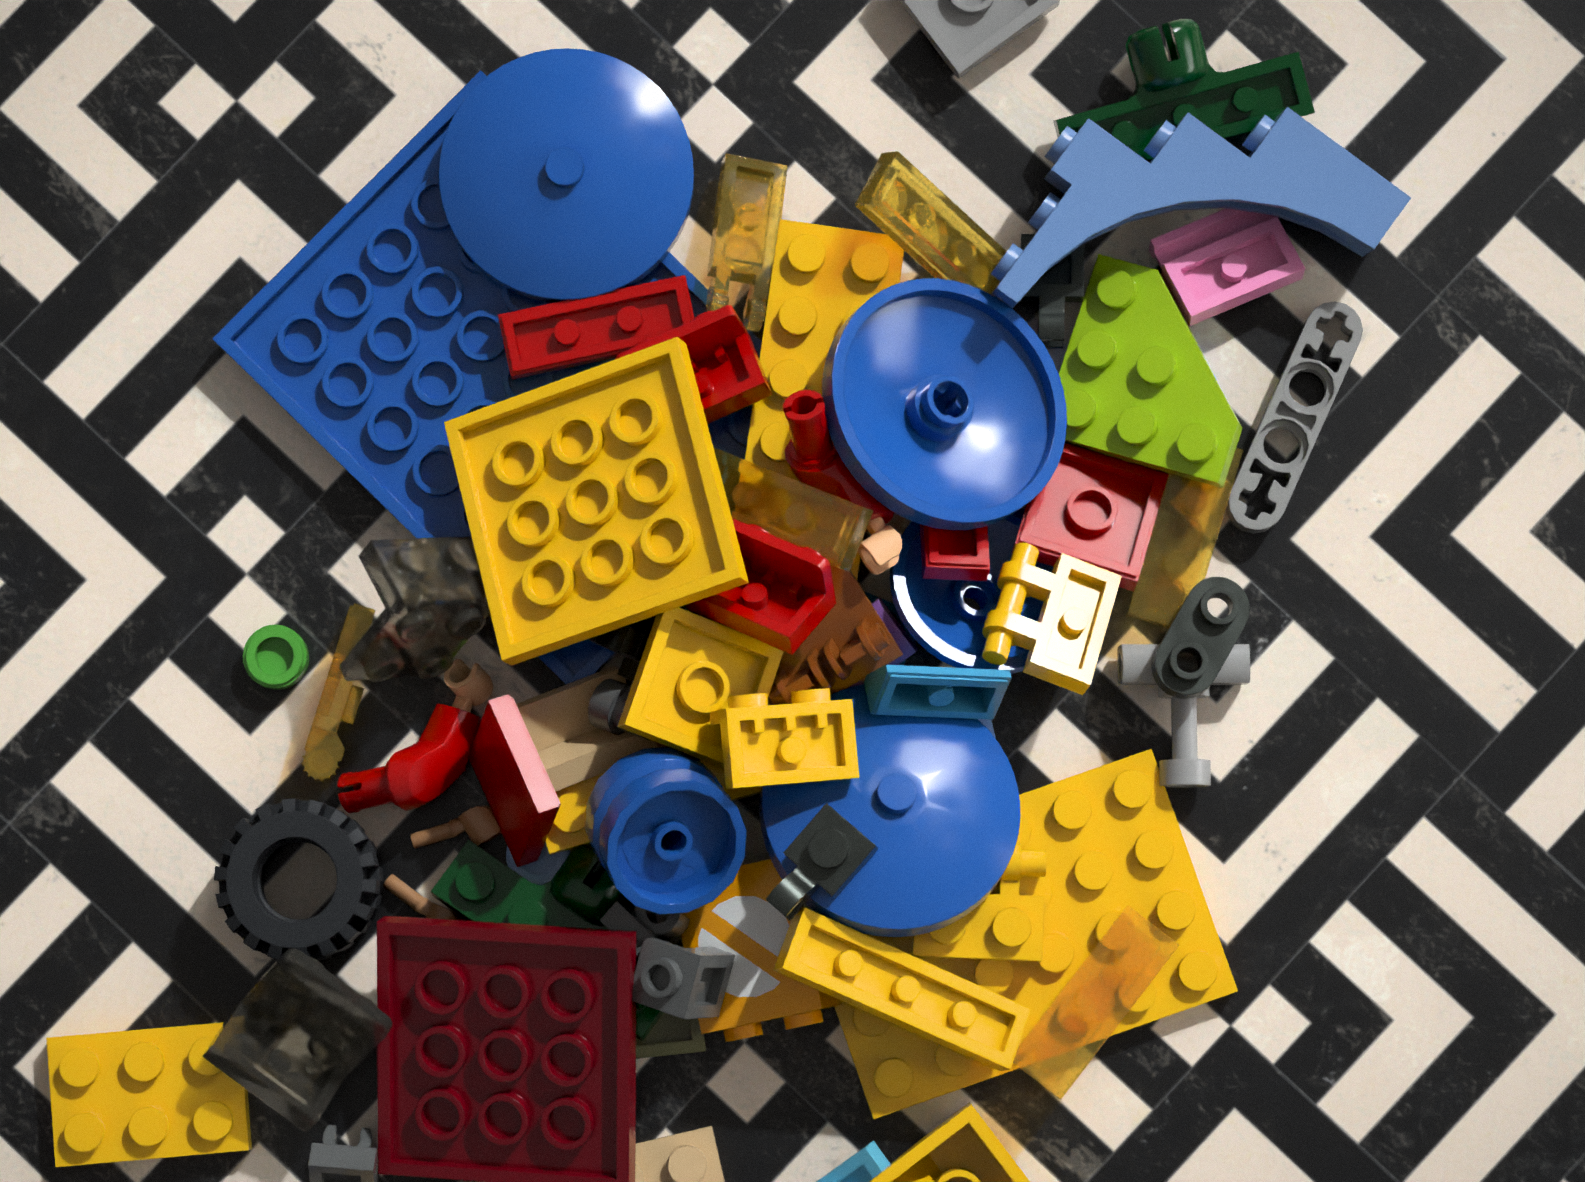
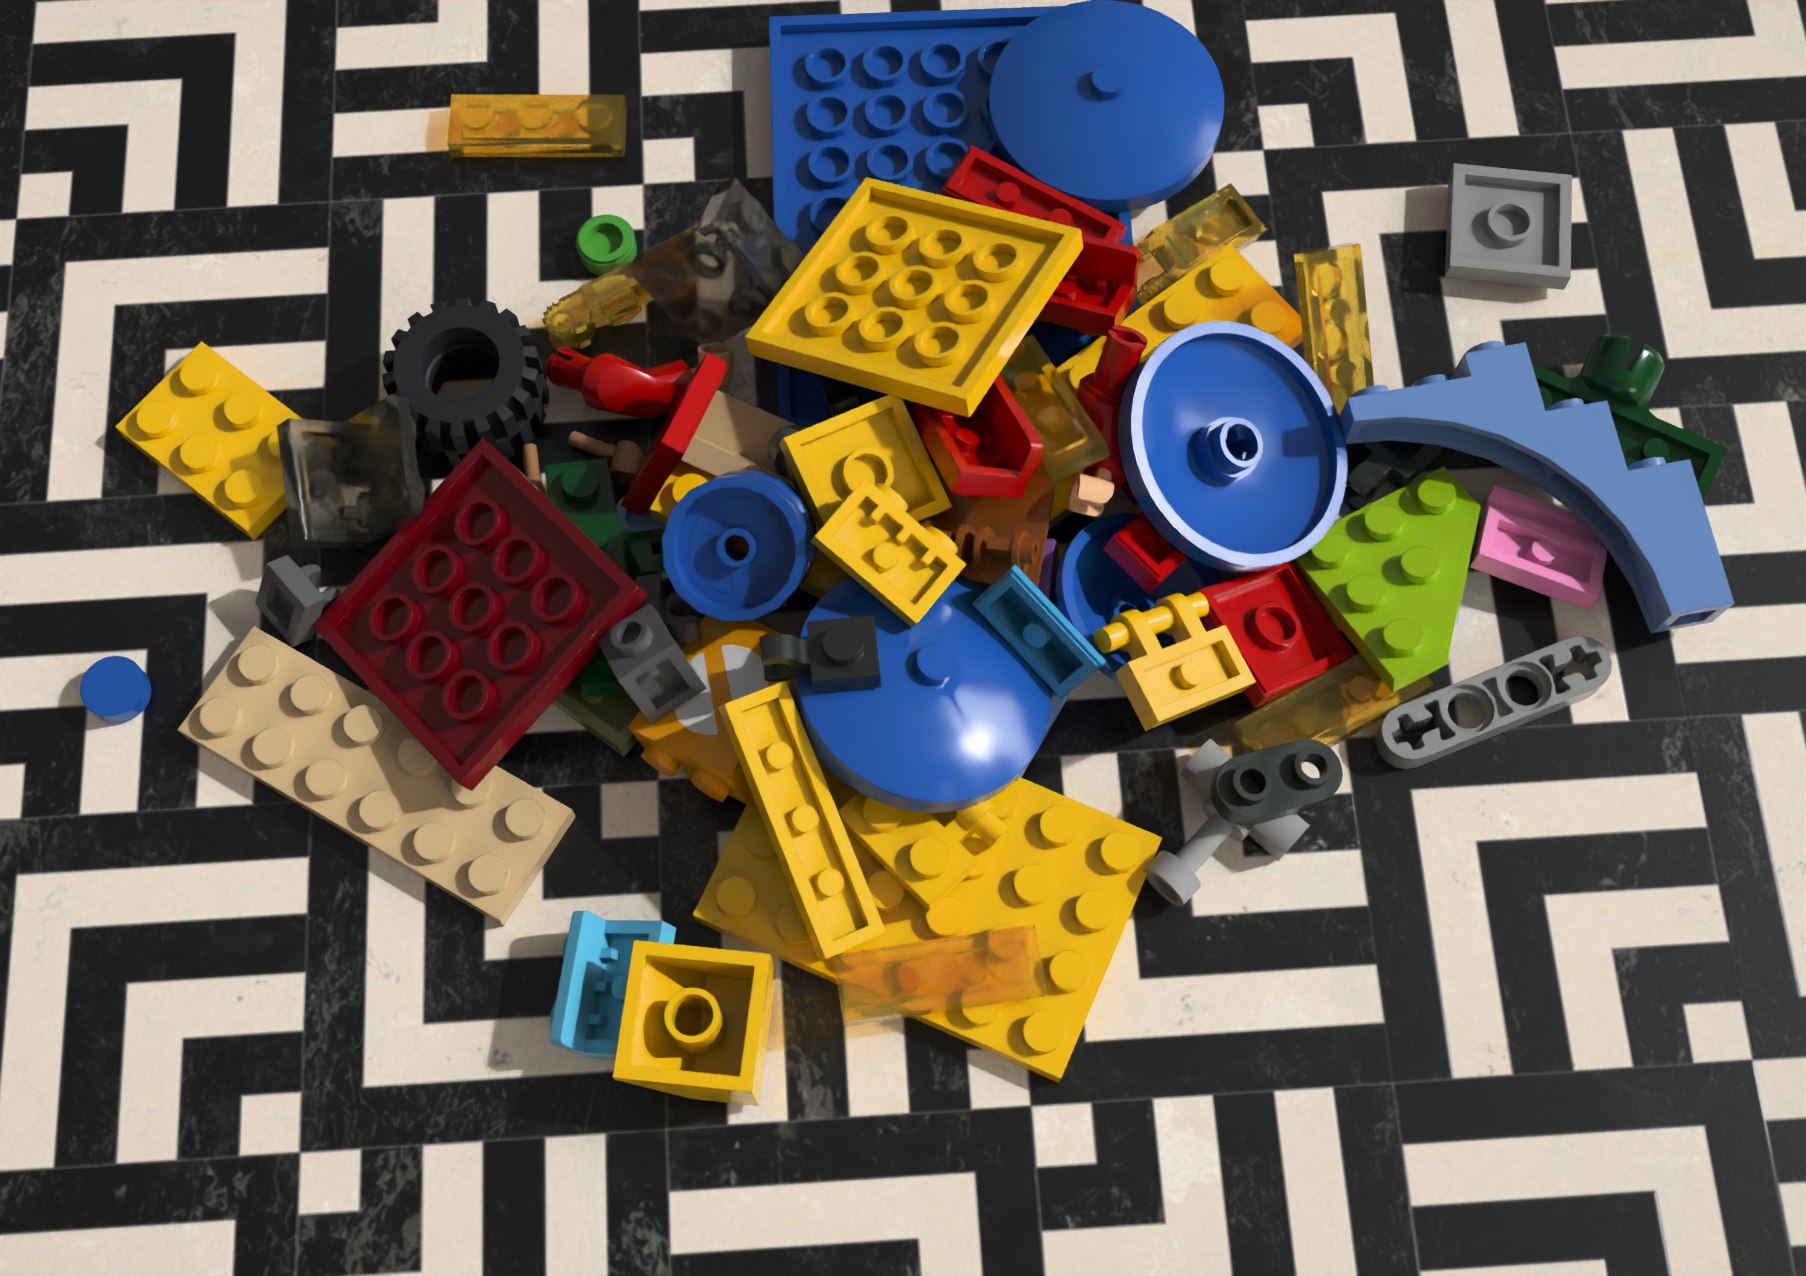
camera: 45 degrees right, 15 degrees down
(112, 604) = (537, 126): none -> clear yellow plate

